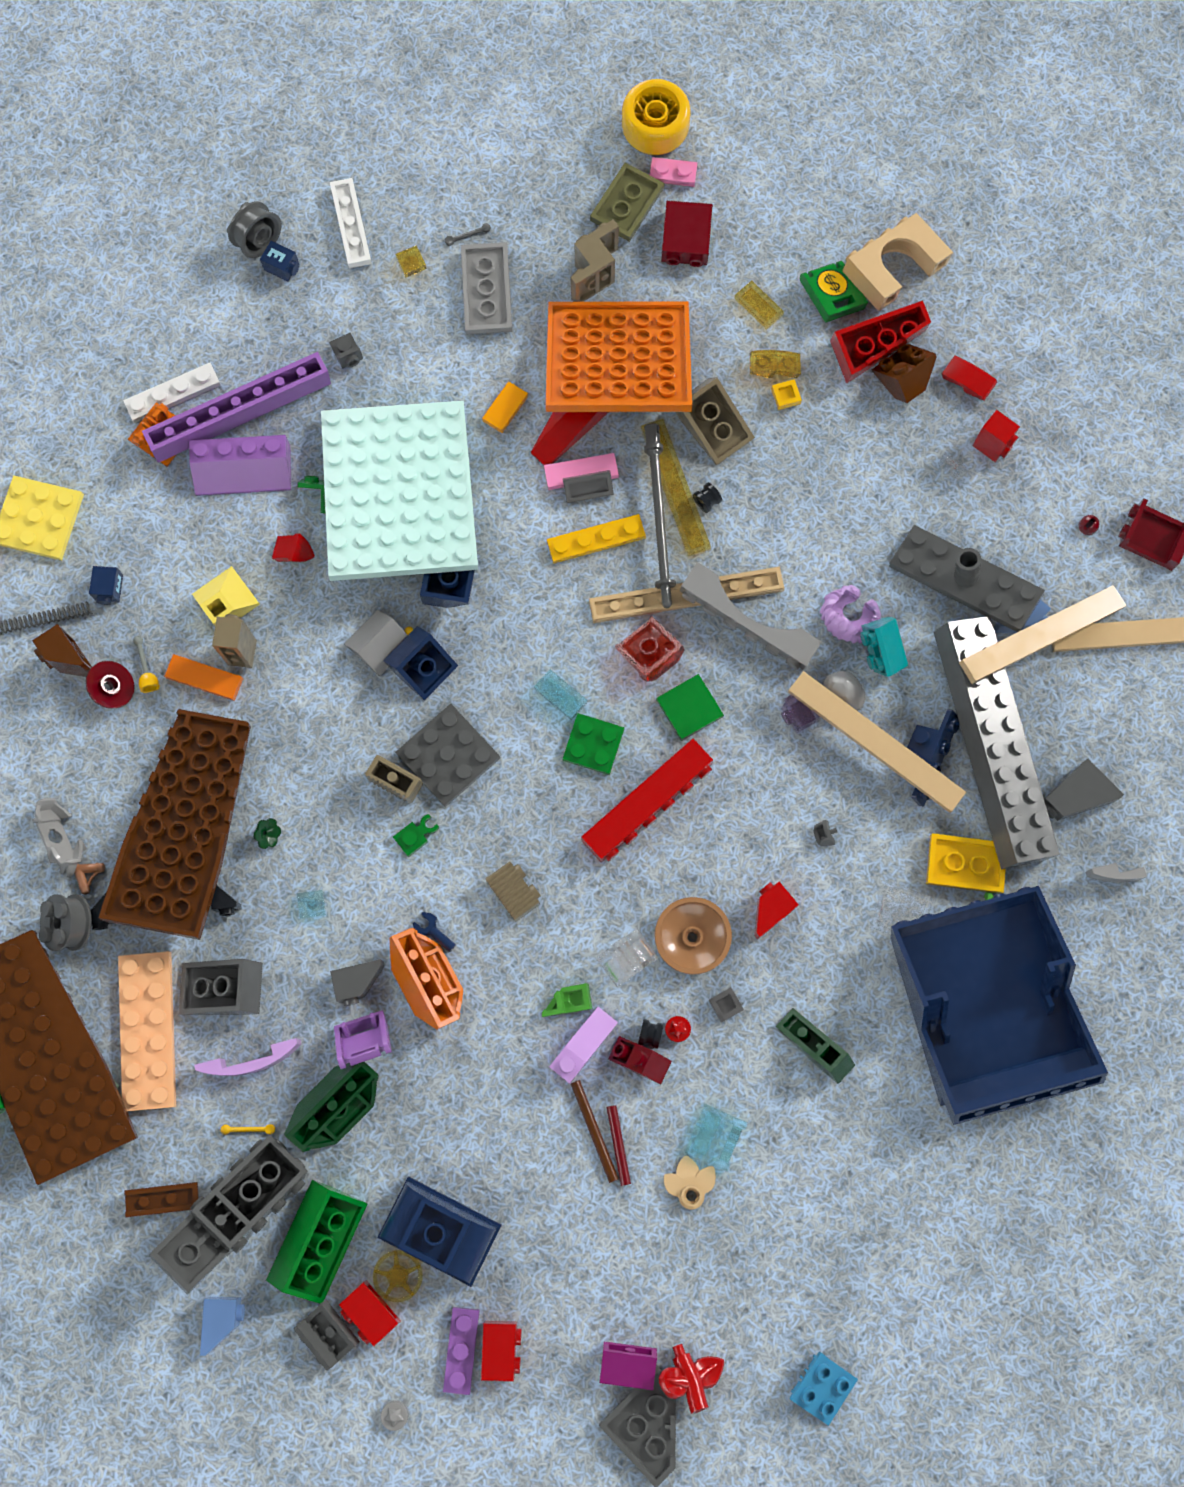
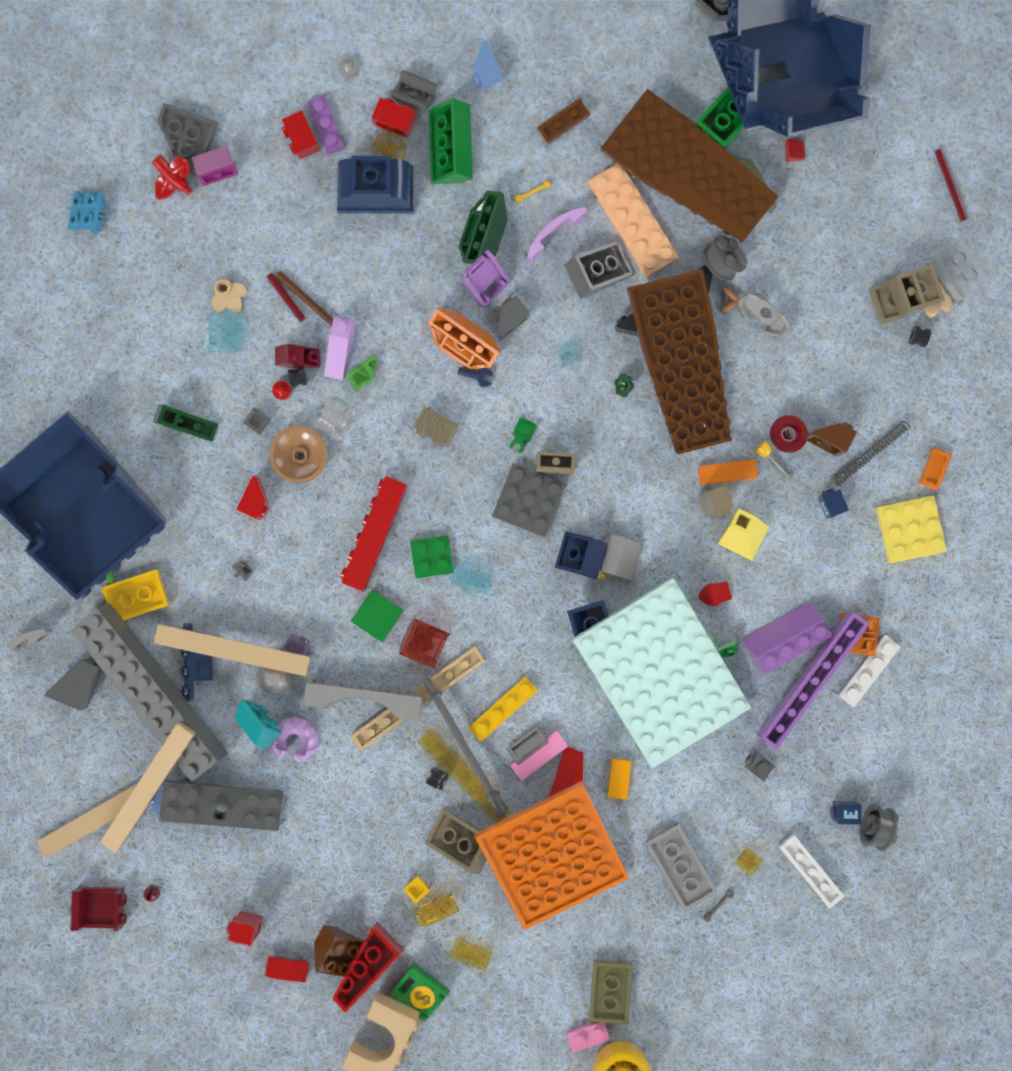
camera: 155 degrees right, 10 degrees up
(230, 1213) = (511, 128): dark grey wedge -> none
(594, 261) = (609, 926): dark tan bracket -> none
(686, 233) = (551, 986): dark red panel -> none

